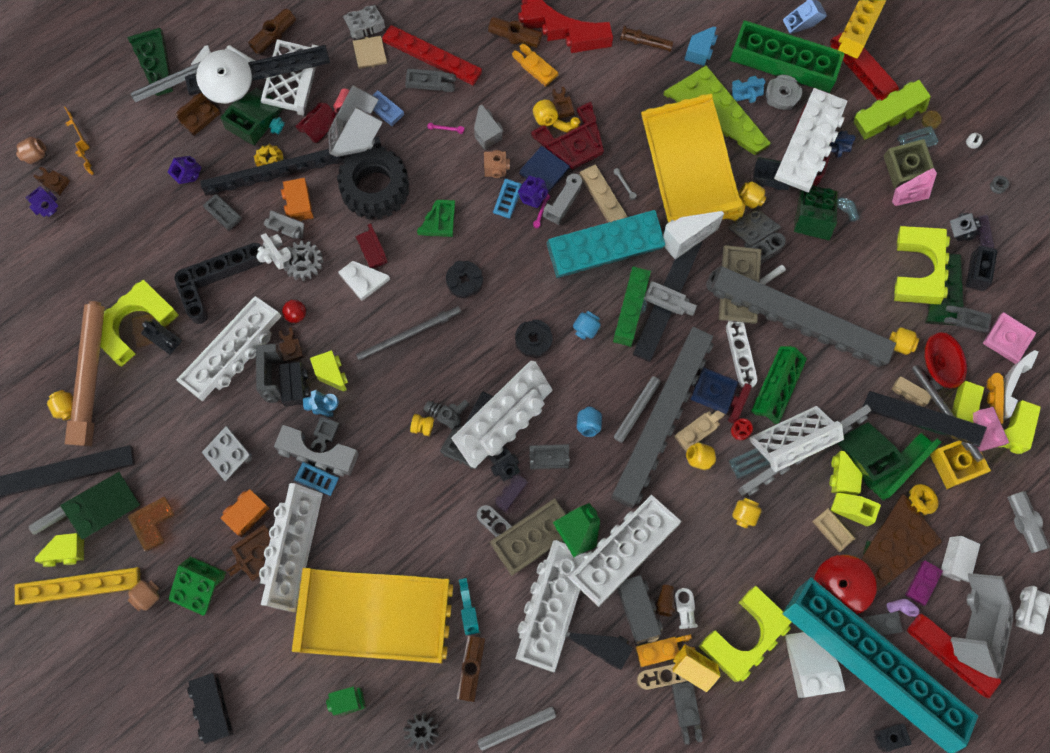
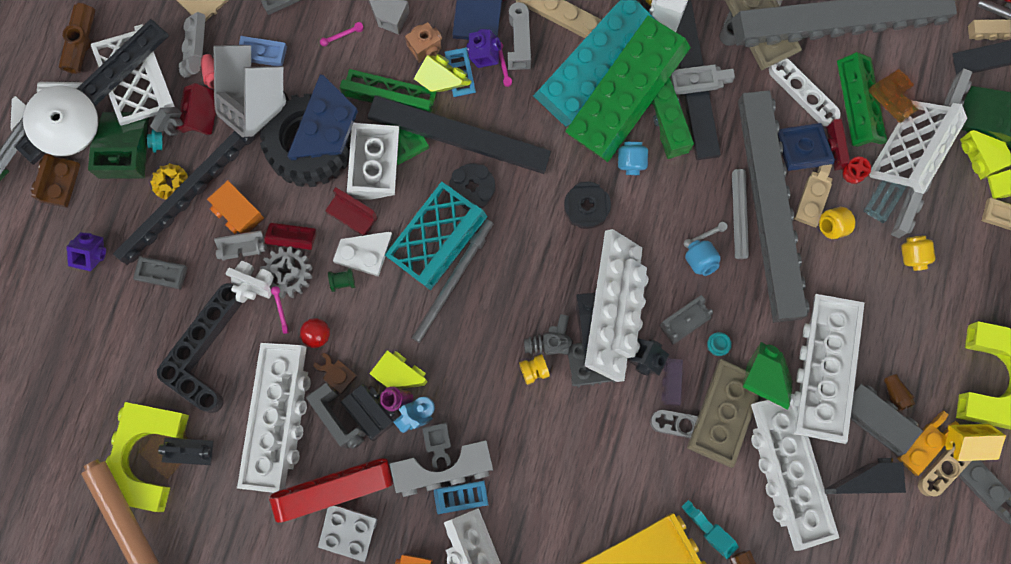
camera: 30 degrees left, 5 degrees up
(233, 417) = (330, 490): none -> red beam
(286, 267) = (275, 291): none -> dark pink hinge
(292, 116) = (166, 120): none -> dark grey tile
(314, 382) = (394, 398): none -> magenta cone
(321, 239) = (290, 236): none -> dark red plate
(335, 287) = (341, 279): none -> dark green bush
(342, 78) = (192, 45): none -> light grey hinge
(389, 176) = (324, 123): none -> dark blue wing
(406, 221) = (372, 161): none -> white slope
(418, 310) = (452, 246): none -> teal fence
(448, 187) = (368, 92): none -> green fence
(478, 239) = (459, 134): none -> black tile
(490, 191) = (439, 75): none -> neon yellow slope
(561, 488) = (719, 344): none -> teal plate
(610, 275) = (628, 88): none -> green brick
(619, 410) = (722, 226): none -> light grey hinge
(686, 610) = (923, 389): white connector -> none
(801, 391) = (891, 95): none -> clear orange plate

